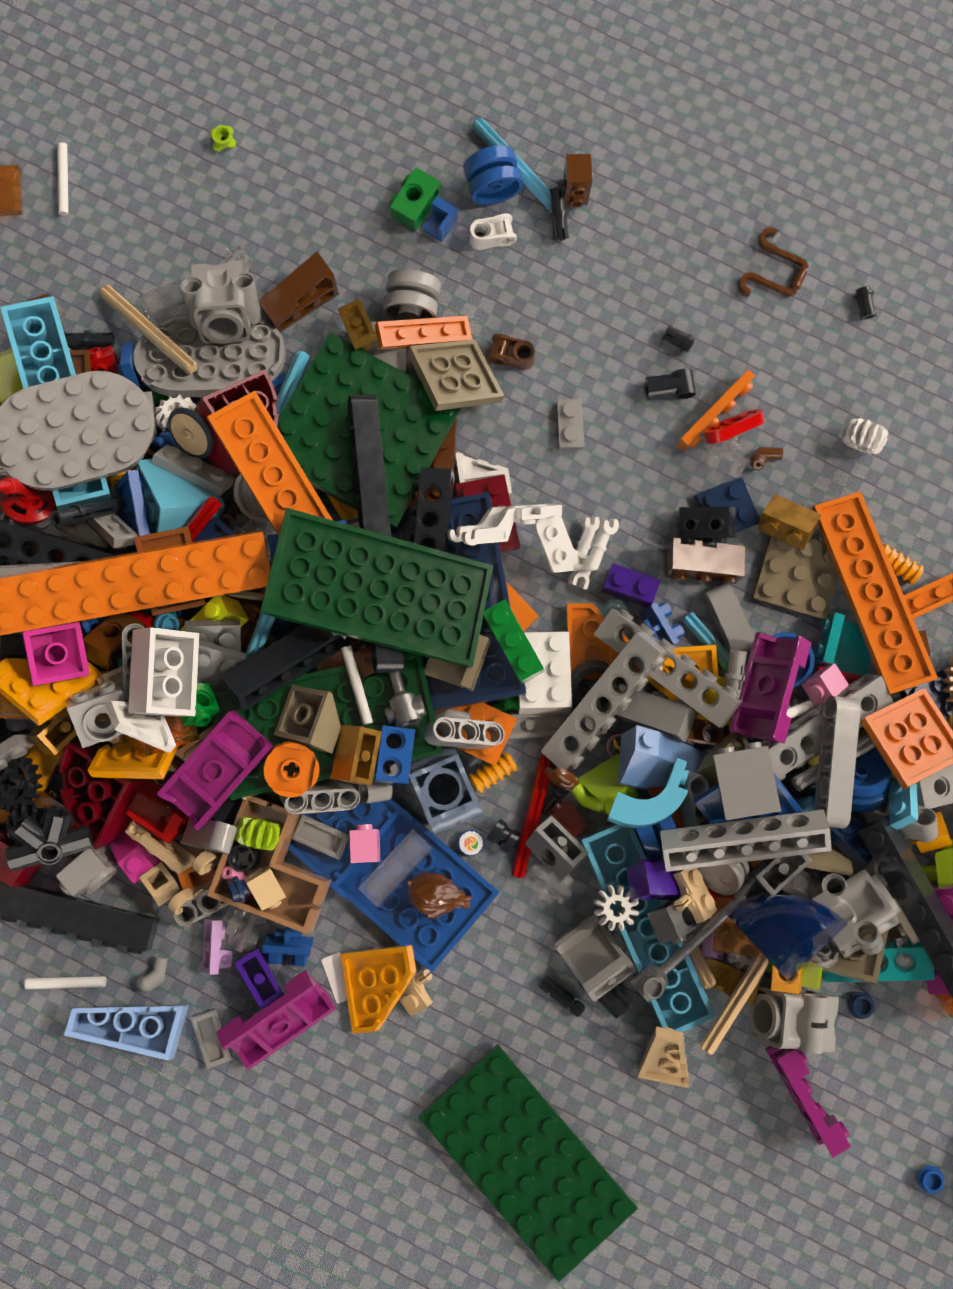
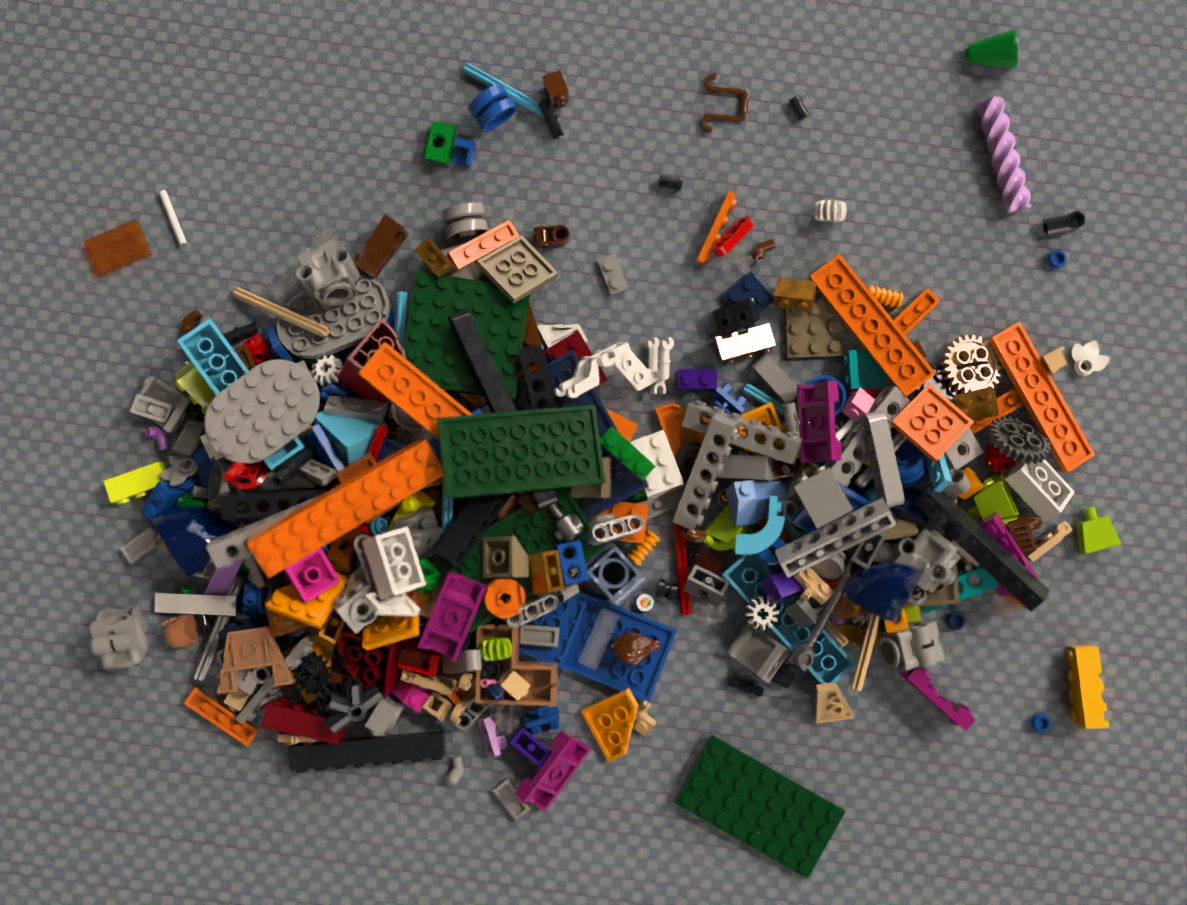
camera: 15 degrees left, 5 degrees up
(65, 982) = (396, 796): white bar -> none
(136, 1029) = (458, 810): light blue wedge -> none
(190, 432) = (345, 383): tan wheel -> none
(219, 132) = (281, 139): lime plate -> none
(334, 972) = (582, 727): white sticker -> none
(356, 685) = (528, 522): white bar -> none
(364, 844) = (572, 630): bright pink brick -> none
(497, 232) = (509, 146): white piece -> none
(677, 384) = (681, 218): black piece -> none

